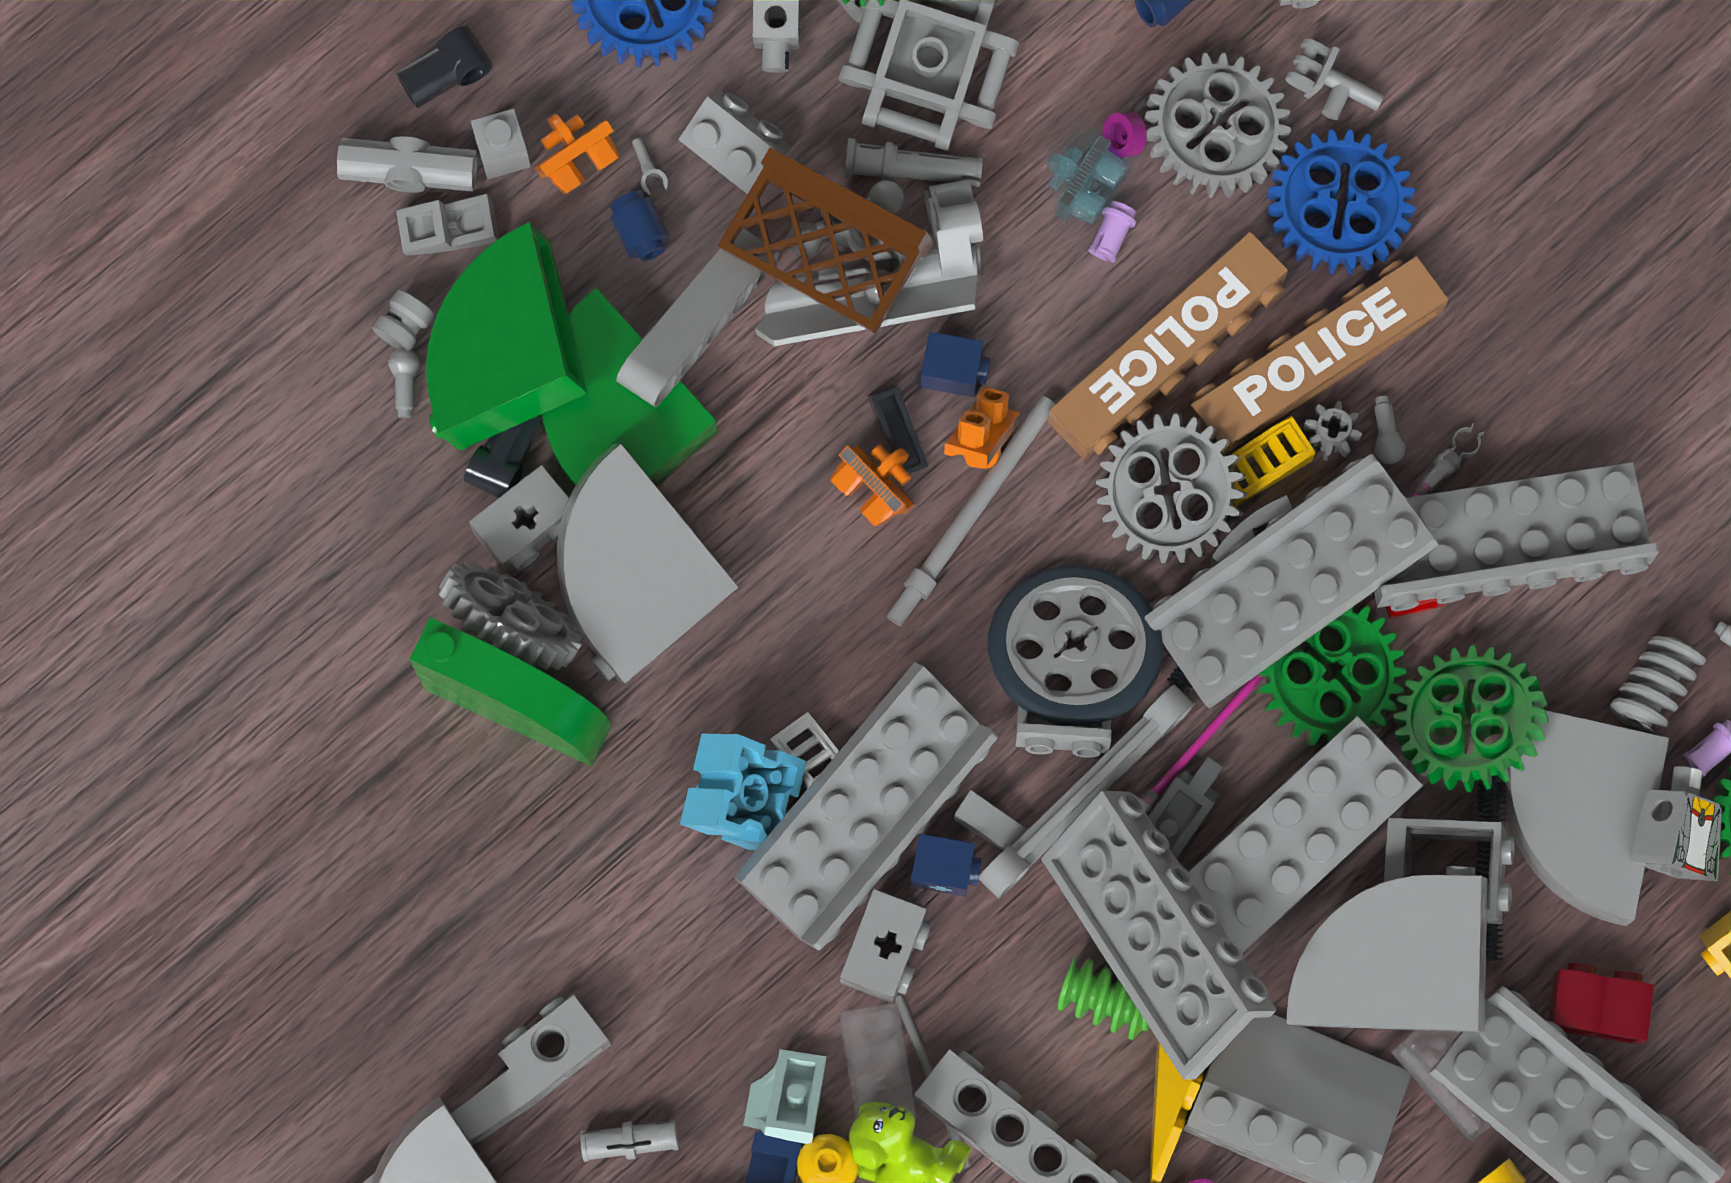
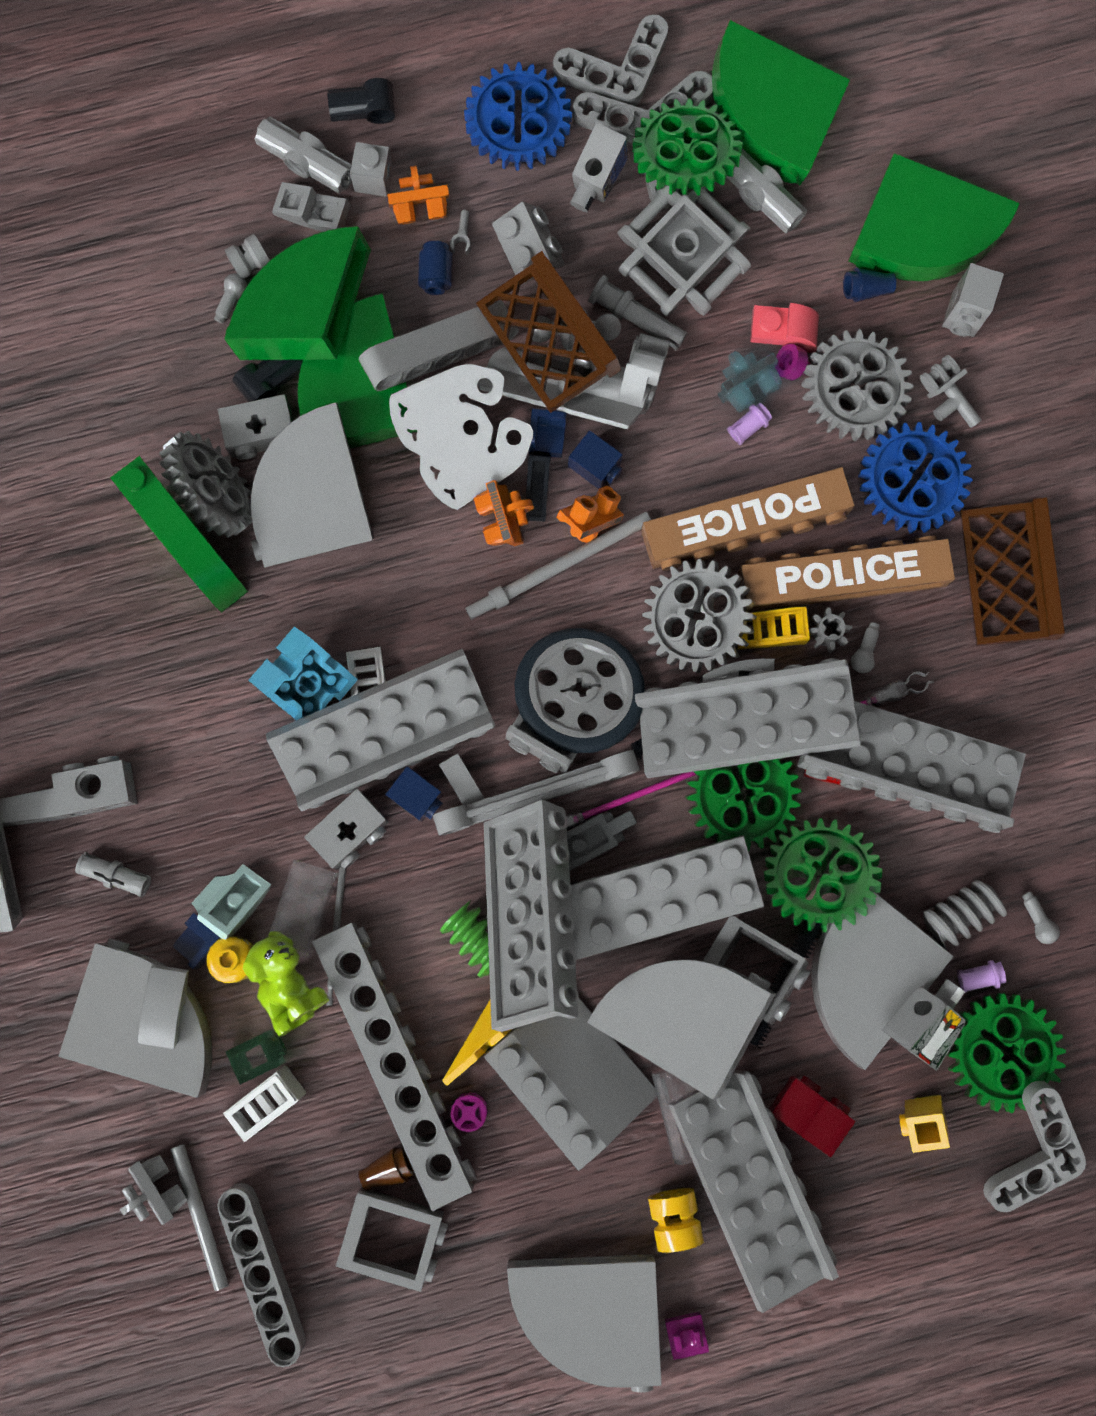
camera: 25 degrees right, 5 degrees up
(762, 431) = (440, 435): none -> piece
(877, 360) = (547, 433): none -> dark blue panel
(1096, 95) = (785, 326): none -> coral brick
(1544, 237) = (1043, 571): none -> reddish brown fence

